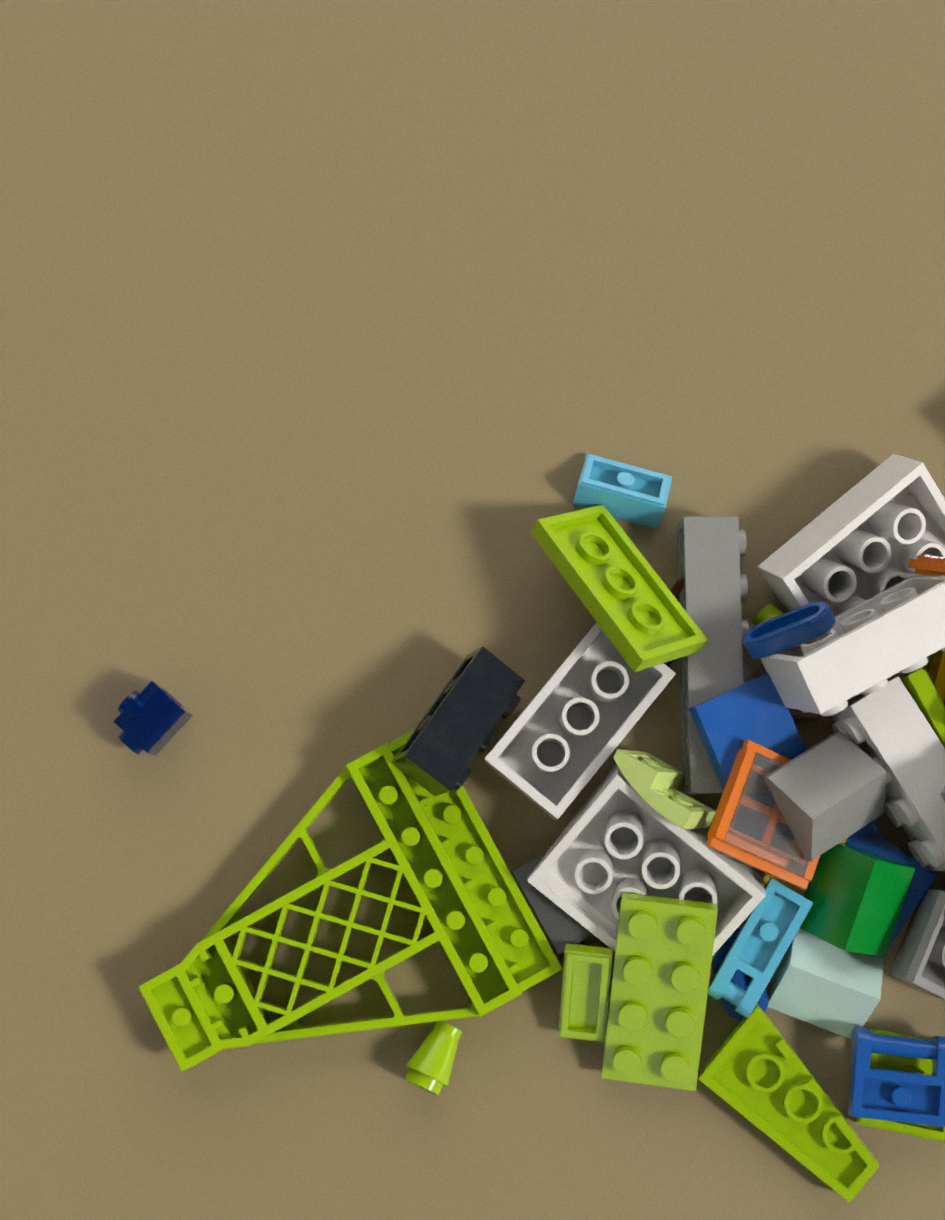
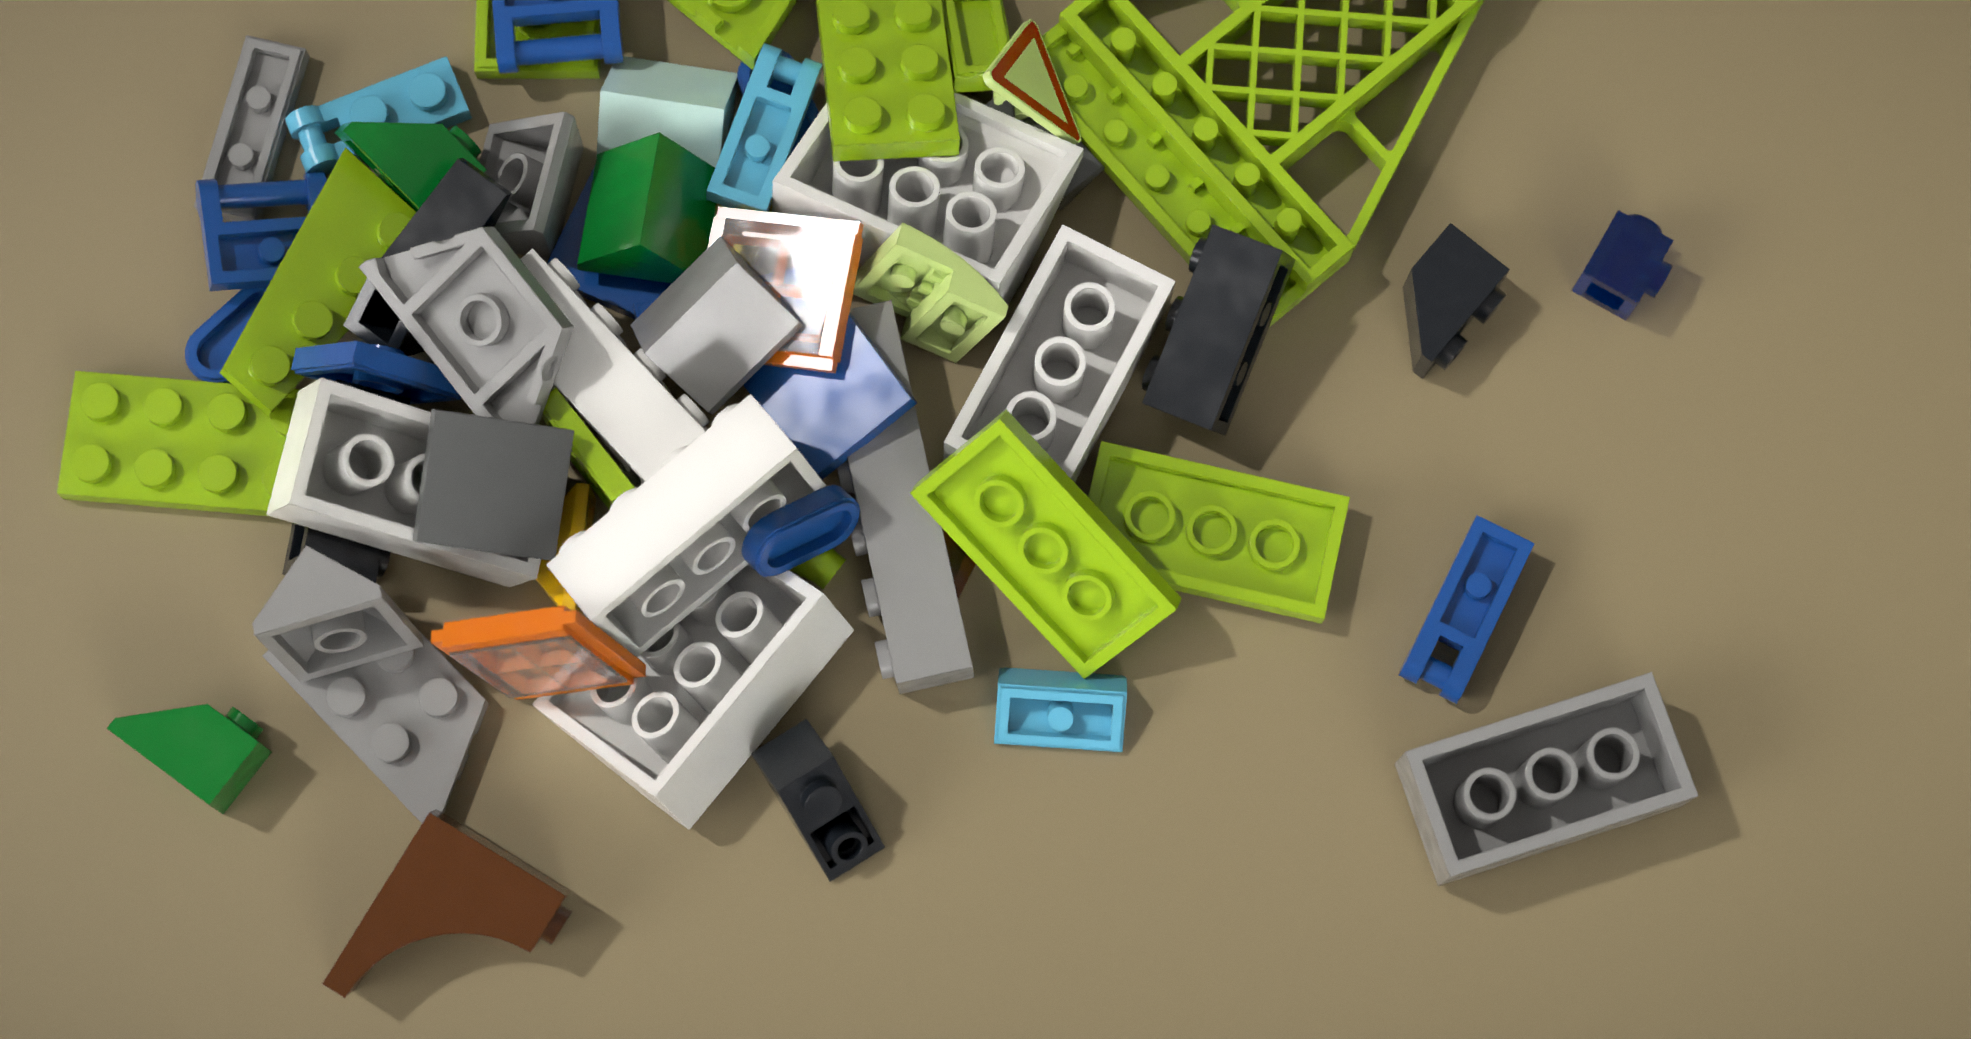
camera: 165 degrees right, 5 degrees down
(286, 721) = (1445, 293): none -> black slope
(307, 365) = (1545, 778): none -> light grey brick
(328, 498) = (1467, 606): none -> blue plate
(490, 586) = (1224, 529): none -> lime plate
(556, 938) = (1030, 83): none -> yellowish green piece
(803, 457) = (818, 799): none -> black slope

